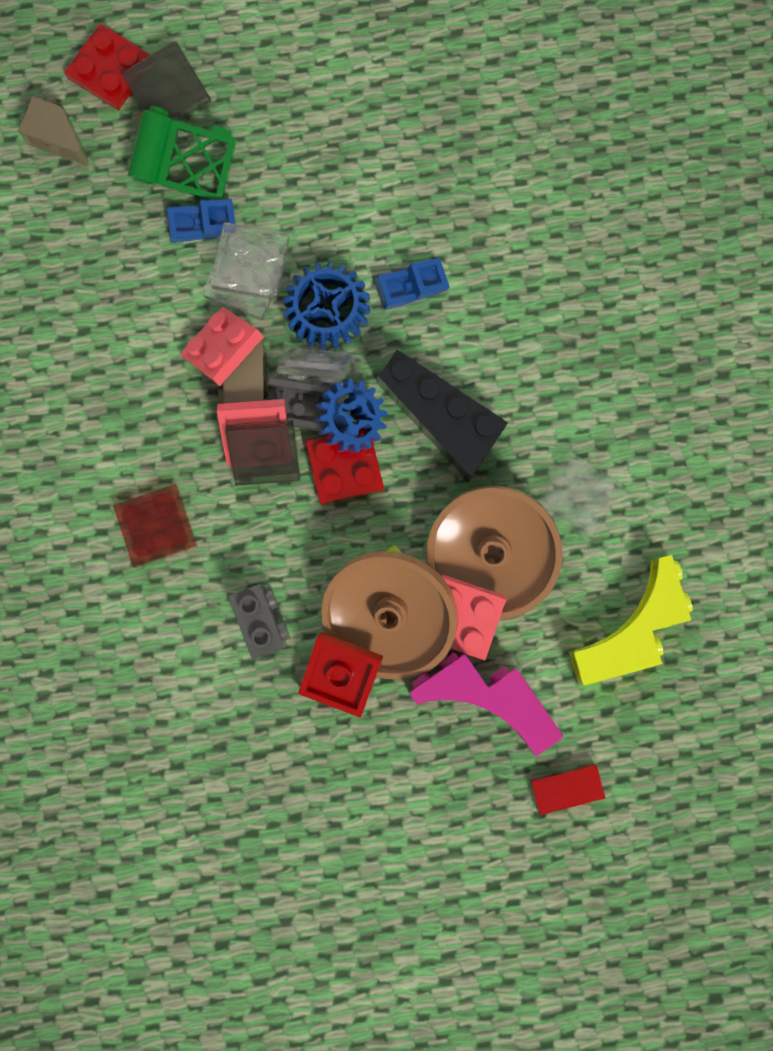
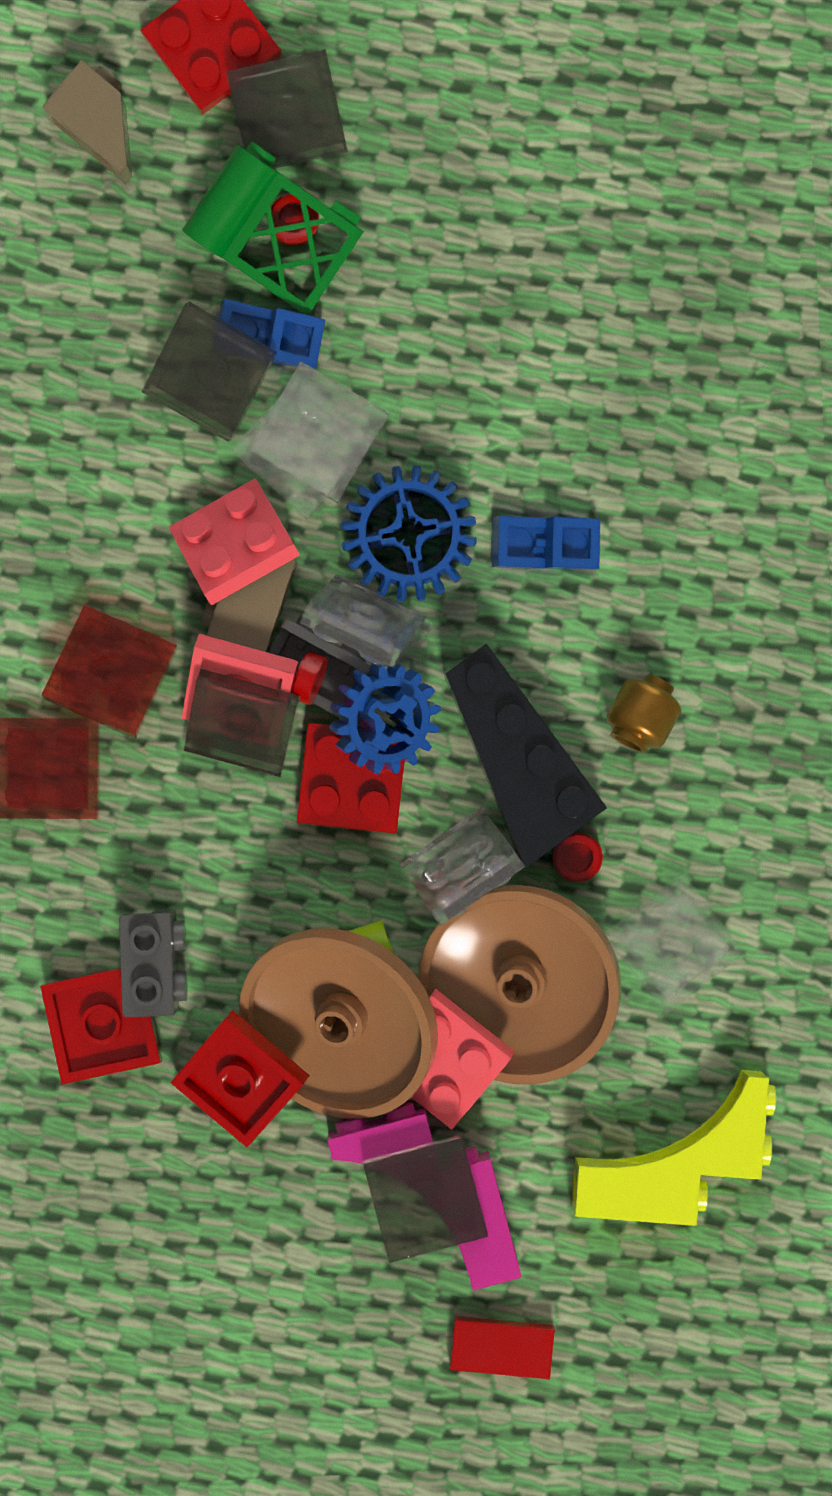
camera: 20 degrees right, 5 degrees up
(172, 252) = (209, 371): none -> clear smoke tile
(172, 452) = (109, 671): none -> clear red plate
(188, 142) = (288, 211): none -> red tile
(237, 677) = (91, 1031): none -> red plate
(296, 408) = (309, 677): none -> red tile
(432, 491) = (461, 866): none -> clear plate
(485, 707) = (425, 1198): none -> clear smoke tile
(500, 464) = (577, 857): none -> red tile
(509, 361) = (643, 713): none -> pearl gold head

